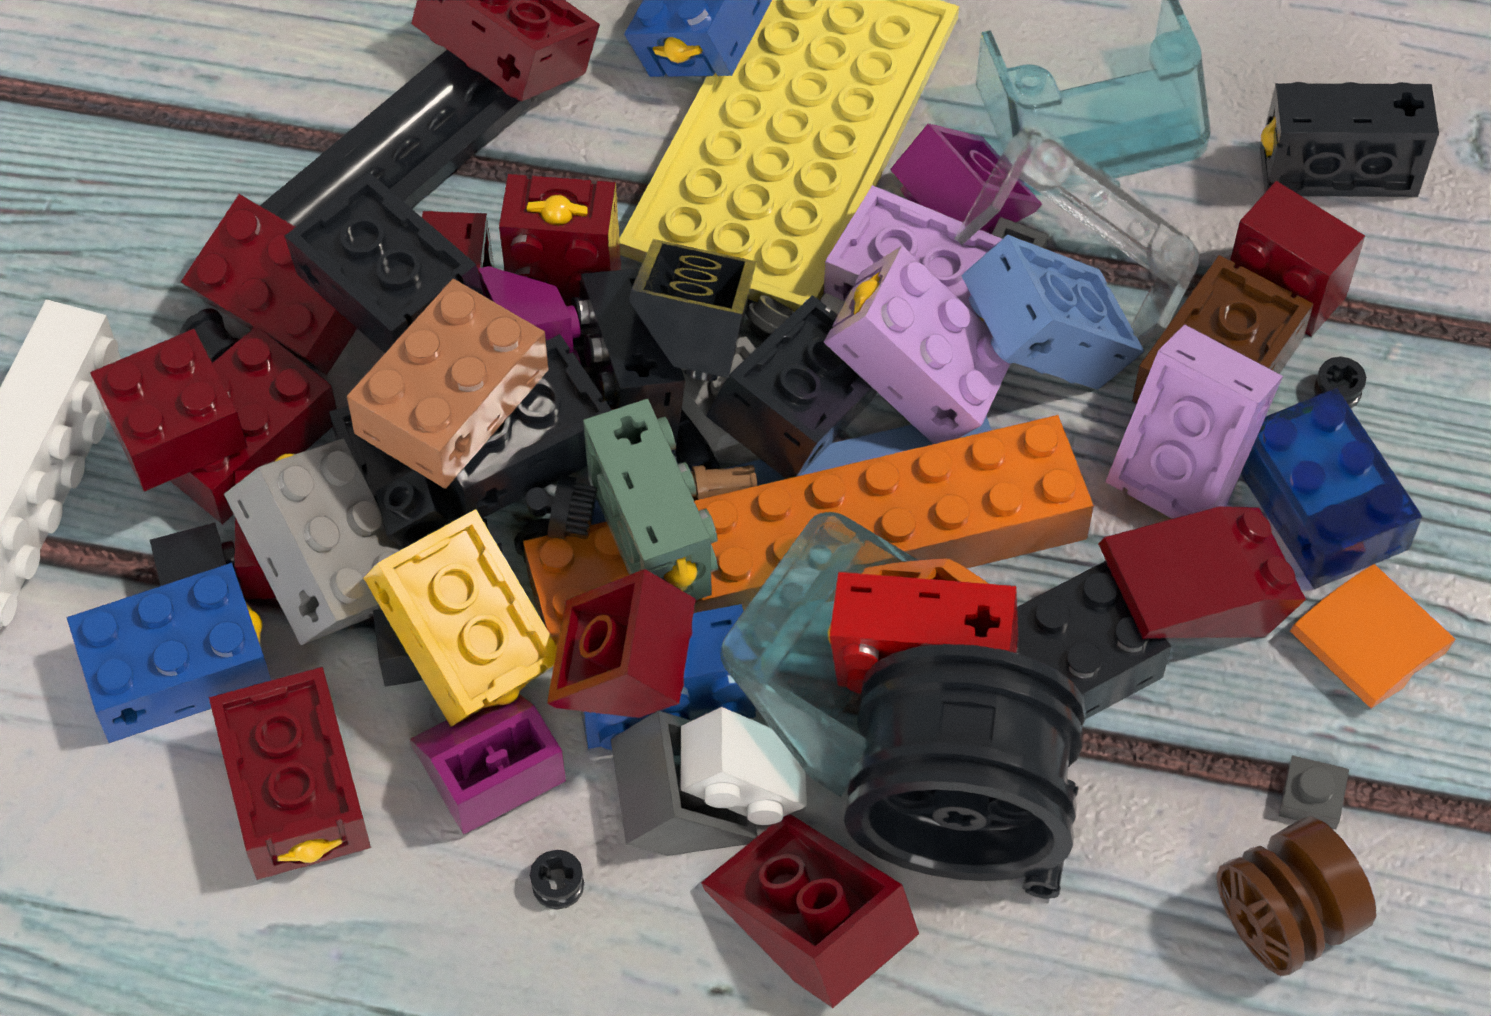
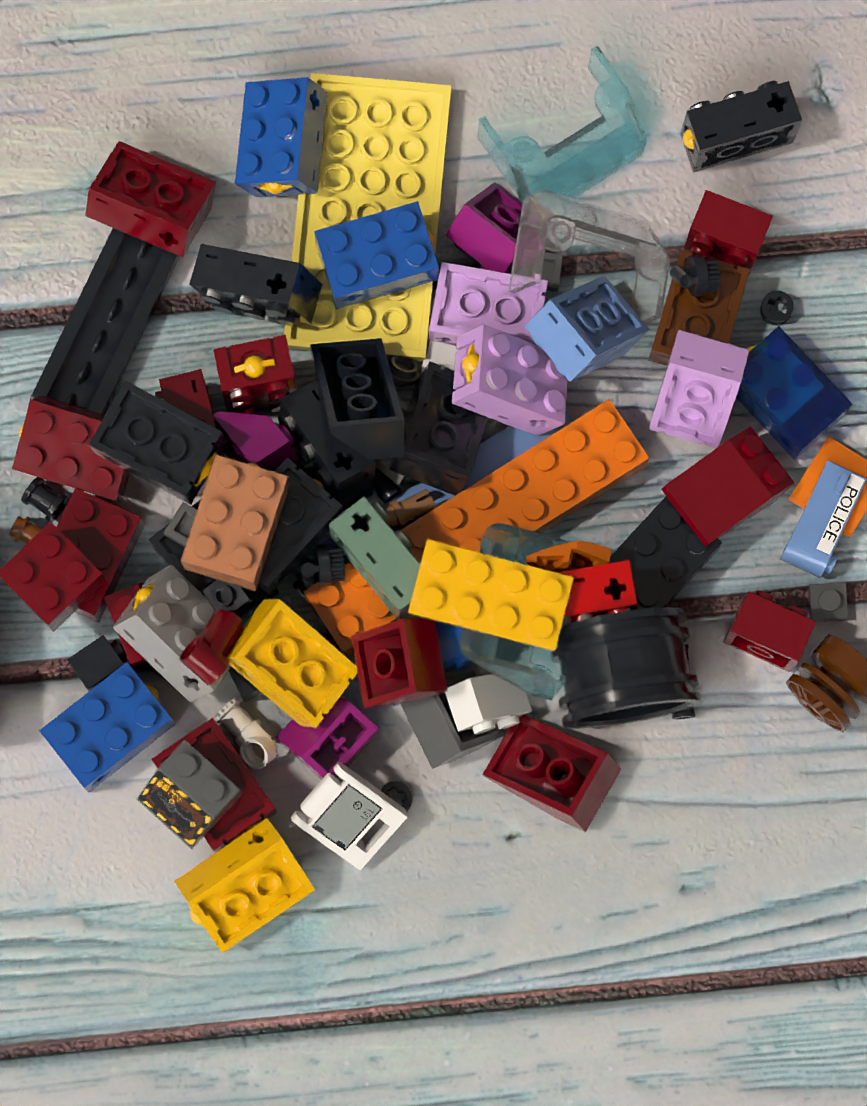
camera: 20 degrees left, 20 degrees up
(241, 751) = (188, 794): none -> slope
(272, 921) = (244, 885): none -> yellow piece
(346, 554) = (209, 650): none -> dark red piece
(368, 717) = (247, 732): none -> white connector
(466, 860) = (345, 812): none -> white container
(609, 137) = (255, 285): none -> black piece
(785, 158) = (377, 255): none -> blue piece
(788, 575) = (490, 595): none -> yellow plate
(1209, 790) = (770, 630): none -> dark red brick
(1237, 281) = (699, 276): none -> black piece
(1332, 670) = (823, 520): none -> medium blue door

